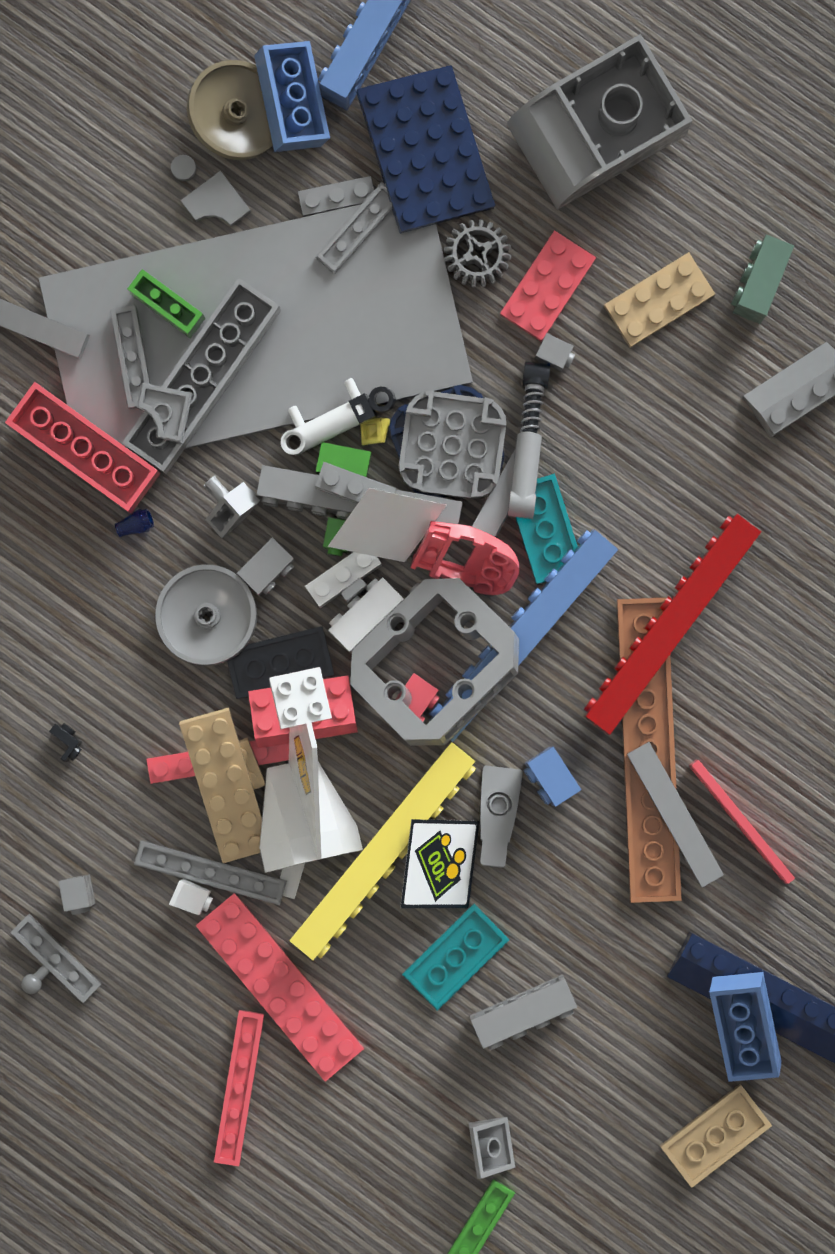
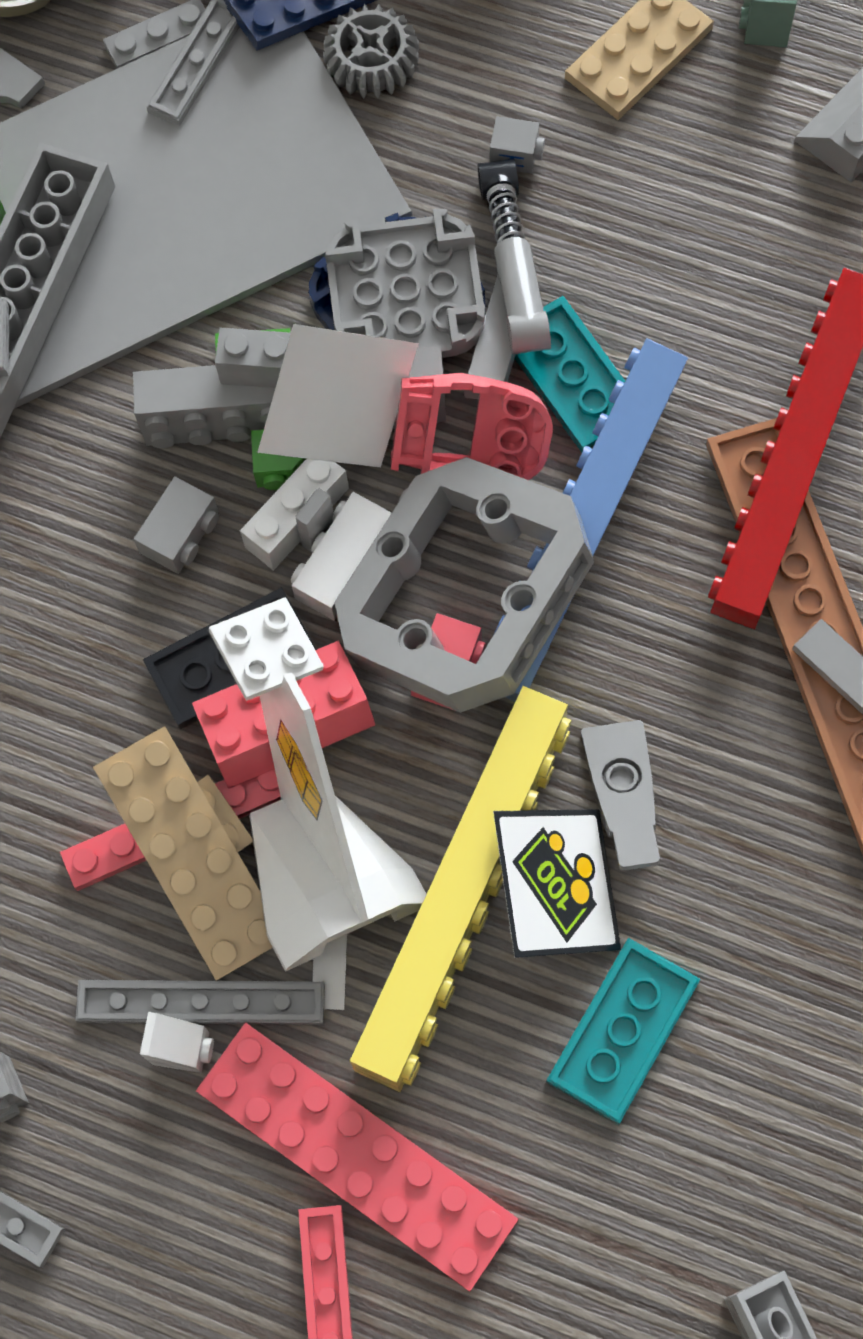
camera: 10 degrees left, 15 degrees down
(199, 592) = (102, 614): light grey dish -> none
(231, 507) = (104, 453): light grey brick -> none
(349, 415) = (258, 280): white piece -> none
(374, 431) = (288, 308): light yellow slope -> none
(523, 1012) = (760, 1079): light grey brick -> none
(547, 286) = (480, 70): coral plate -> none
(551, 776) = (691, 701): medium blue brick -> none

